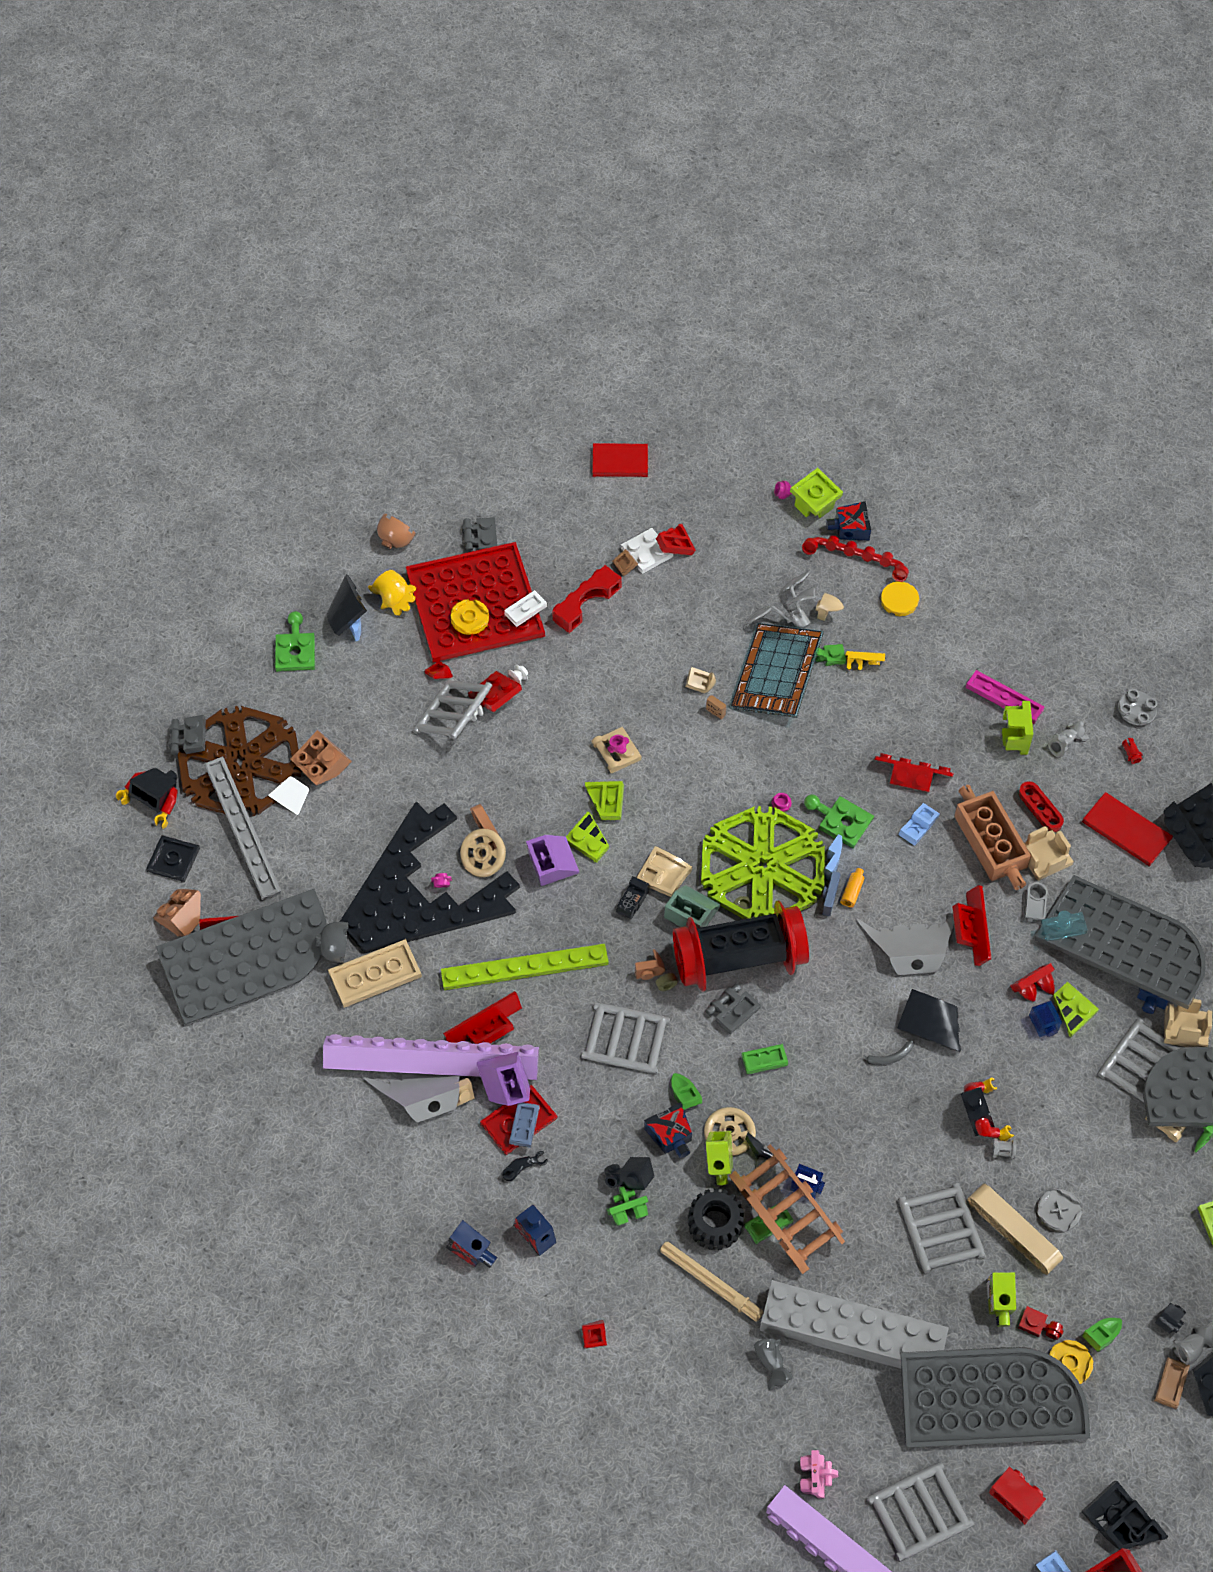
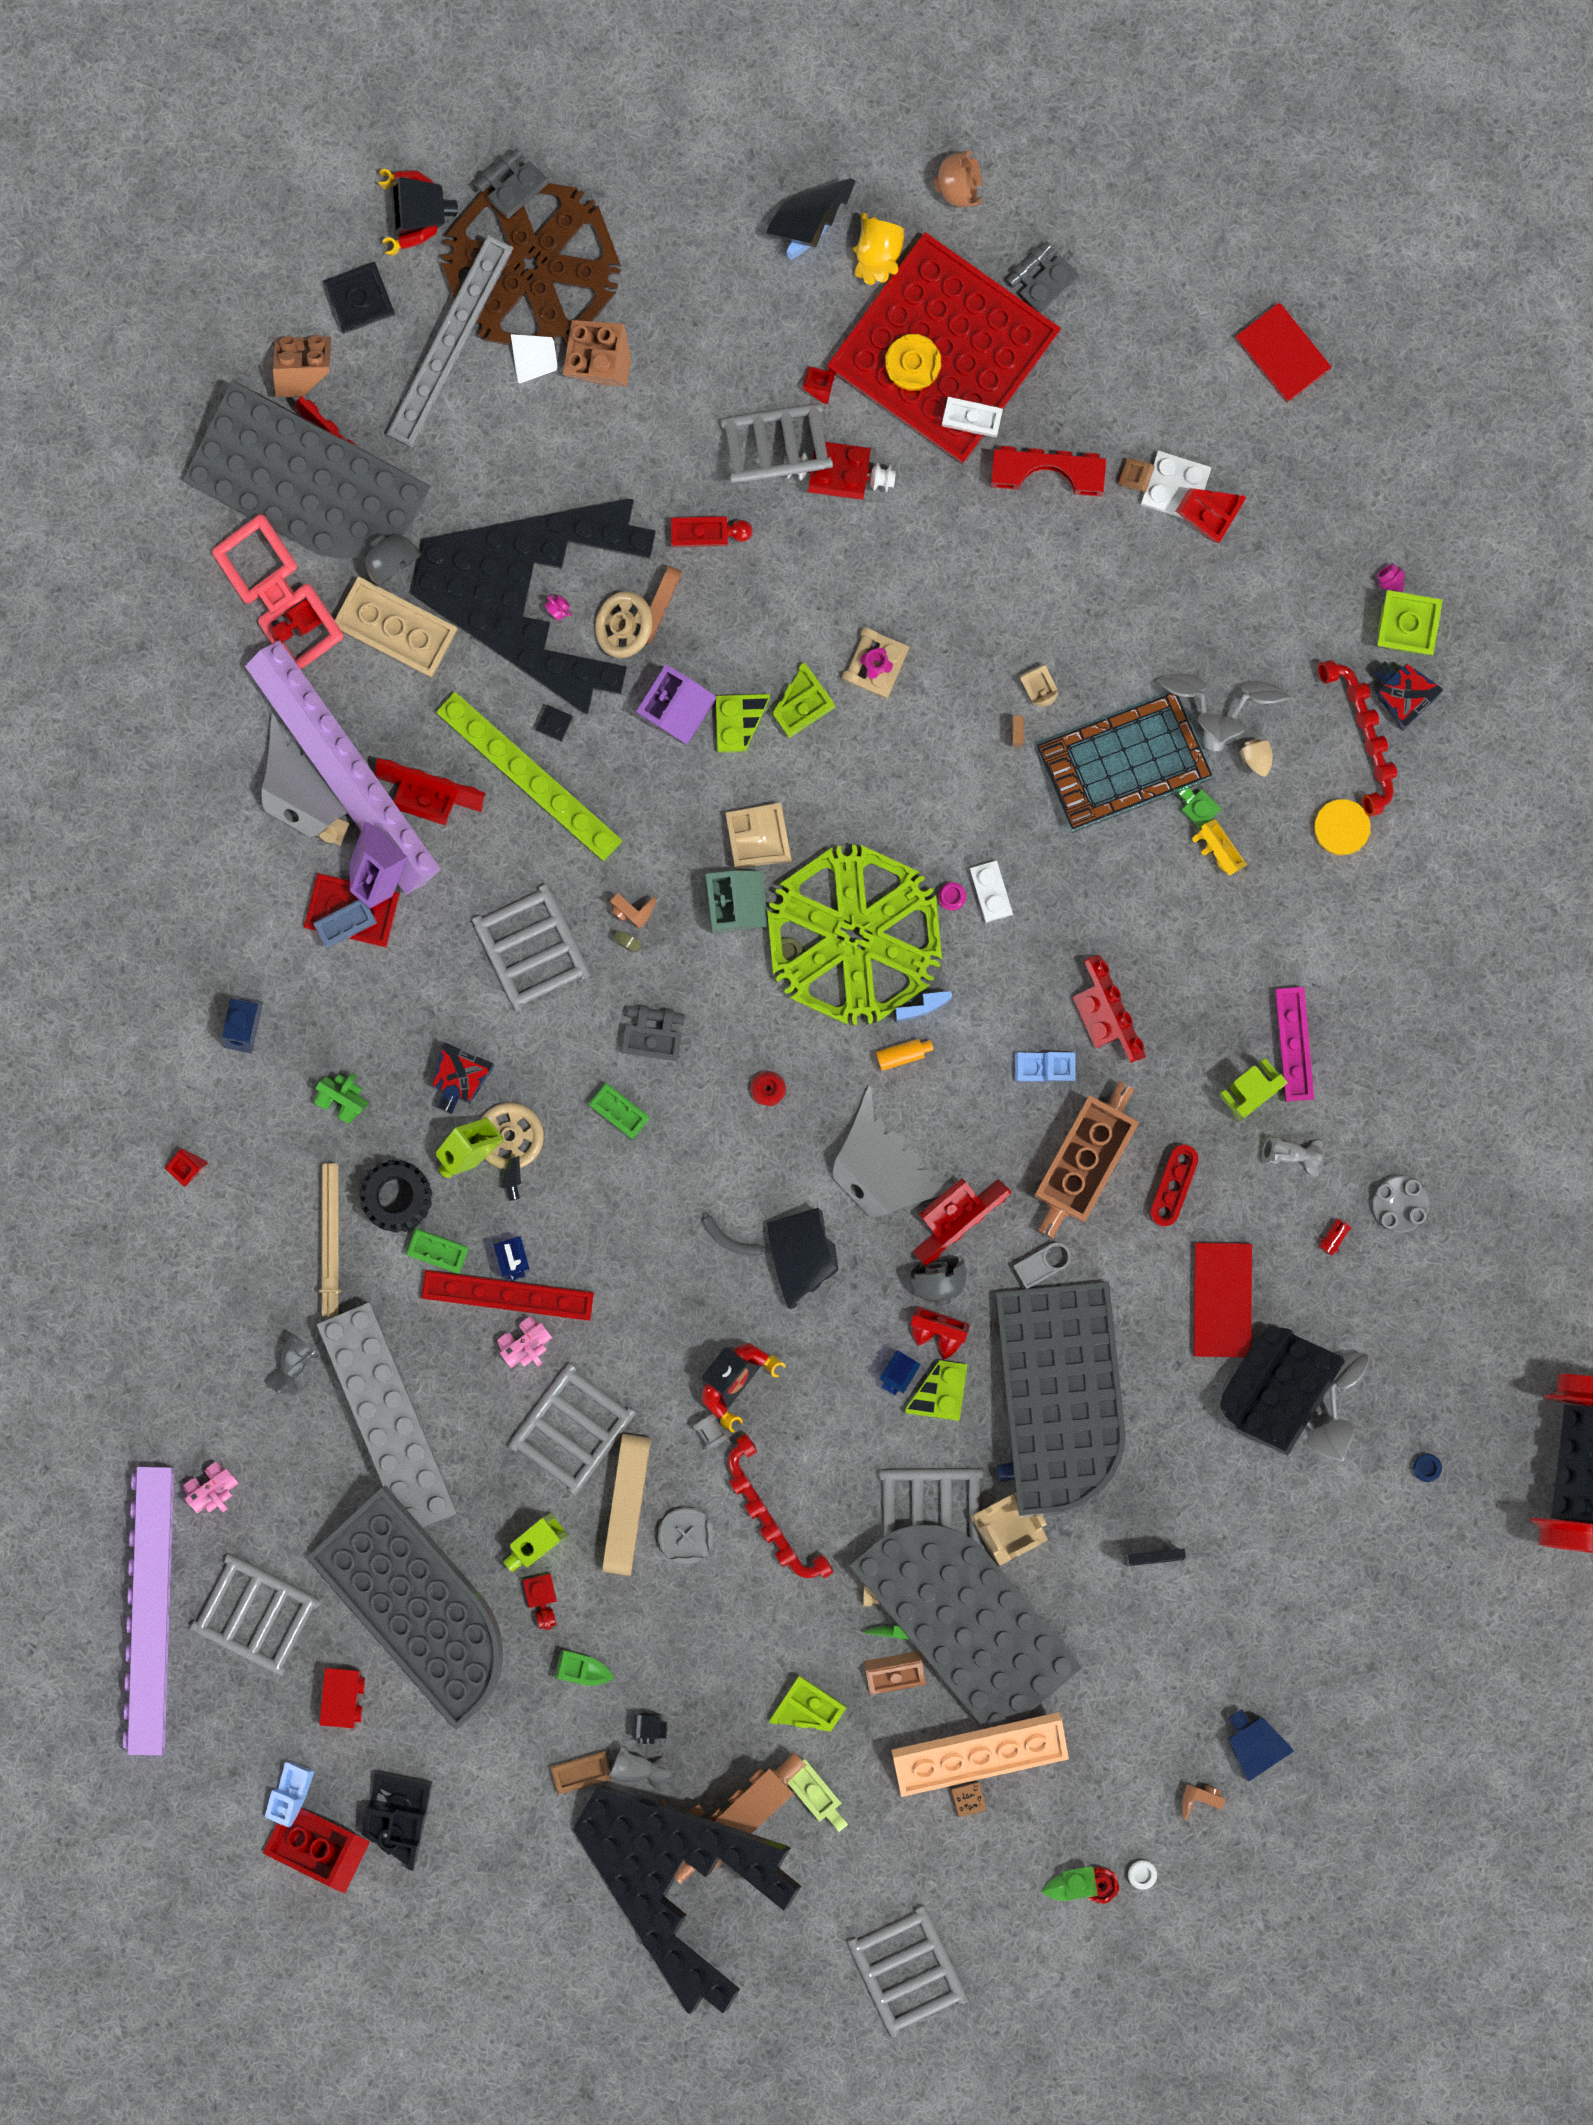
camera: 50 degrees right, 25 degrees up
(287, 642) = (719, 184): bright green plate -> none
(293, 1019) = (275, 589): none -> coral bar
(324, 1019) = (302, 618): none -> red plate
(464, 1240) = (173, 962): dark blue torso -> none
(468, 778) = (707, 531): none -> red plate
(505, 931) = (554, 723): none -> black plate
(519, 1164) = (302, 949): black arm -> none
(633, 897) = (698, 827): black leg -> none
(634, 1175) = (375, 1078): black brick -> none
(685, 1091) = (516, 1056): bright green plate -> none
(740, 945) = (717, 990): brick -> none
(770, 1215) = (432, 1249): nougat fence -> none
(794, 782) = (991, 891): none -> white plate
(816, 977) = (765, 1097): none -> red plate
(830, 892) = (873, 1035): sand blue plate -> none
(836, 1196) = (507, 1295): none -> red tile
(841, 810) = (993, 968): bright green plate -> none
(871, 1212) = (527, 1347): none -> bright pink hips
(1005, 958) = (938, 1280): none -> dark grey cylinder
(1047, 852) = (1115, 1232): tan panel -> none
(1064, 925) = (1028, 1316): clear light blue tile -> none
(1071, 1156) = (757, 1508): none -> red bar
(1080, 1365) = (522, 1665): yellow tile -> none

